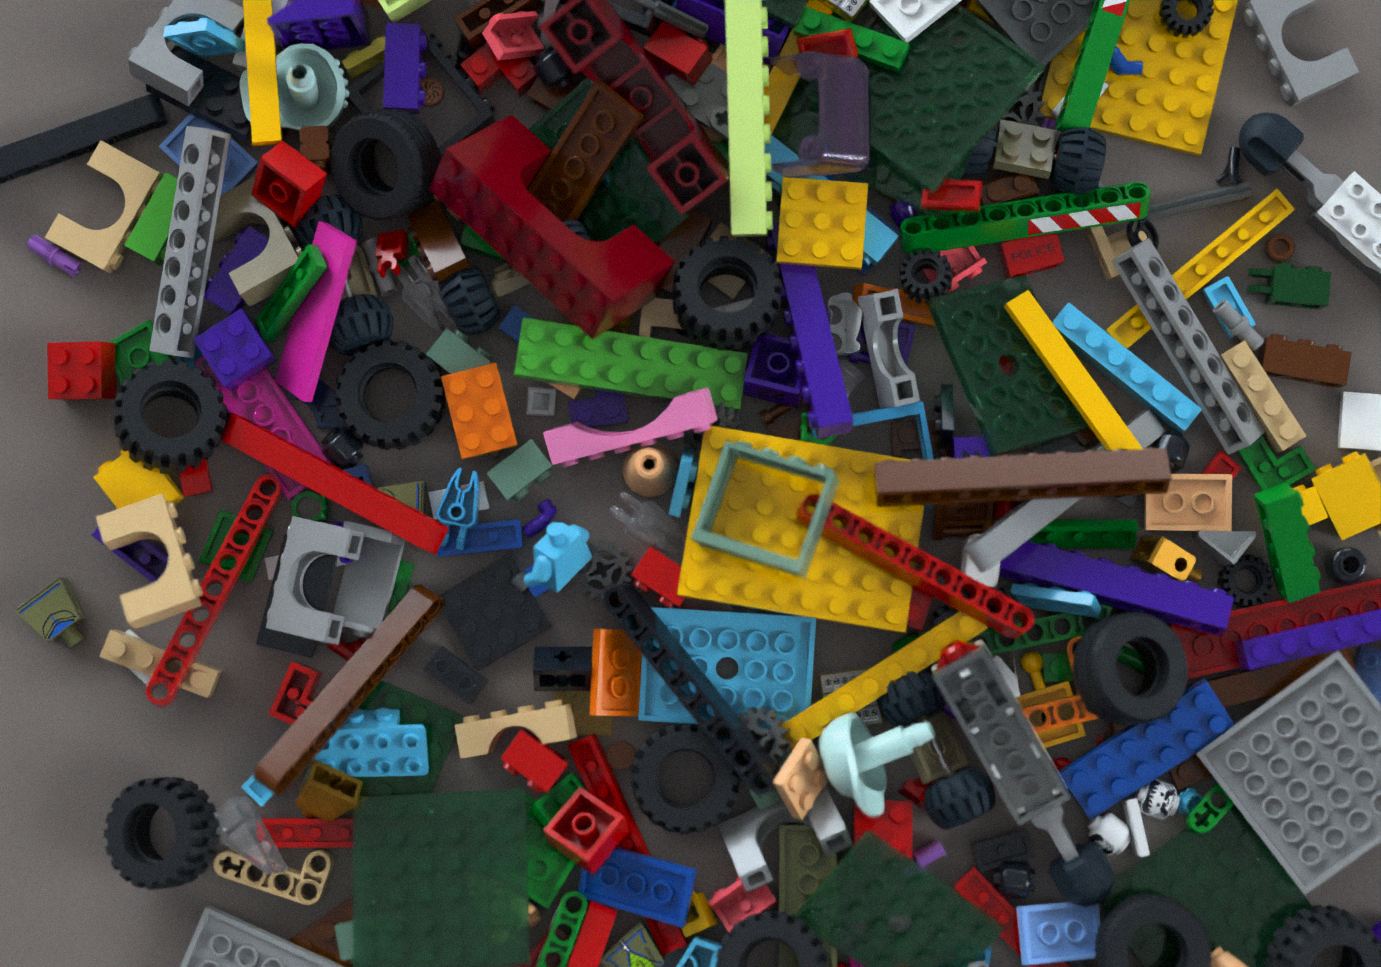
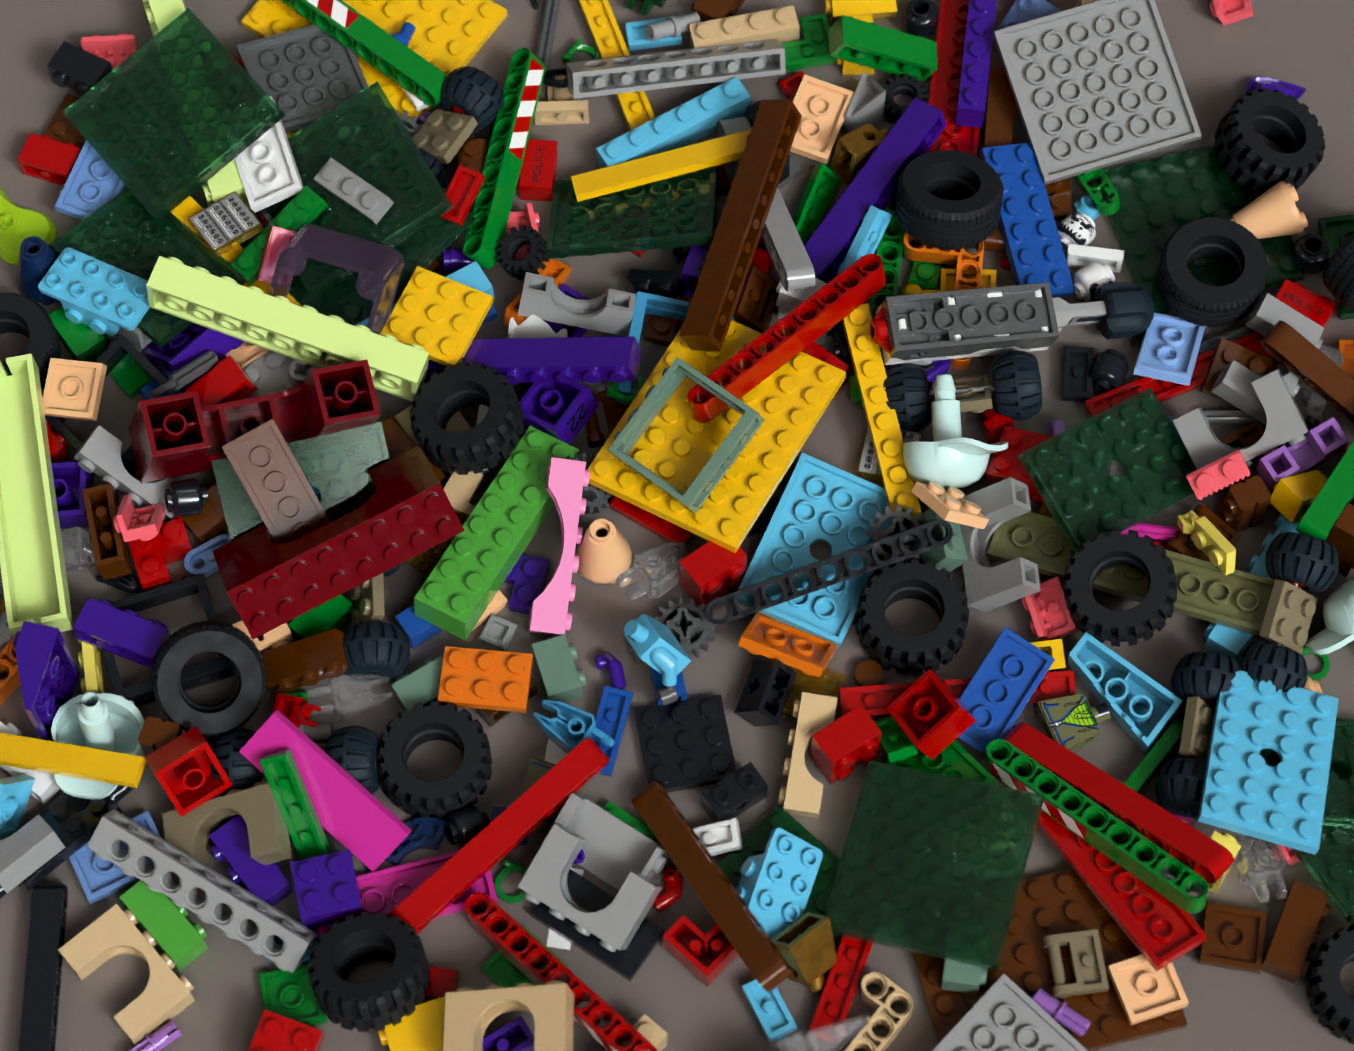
camera: 70 degrees left, 20 degrees down
(410, 674) = (720, 836): none -> white plate
(522, 111) = (205, 555): none -> medium blue plate
(682, 489) = (633, 524): medium azure plate -> none
(917, 91) = (353, 190): none -> light grey plate
(1185, 241) = (578, 46): none -> green piece

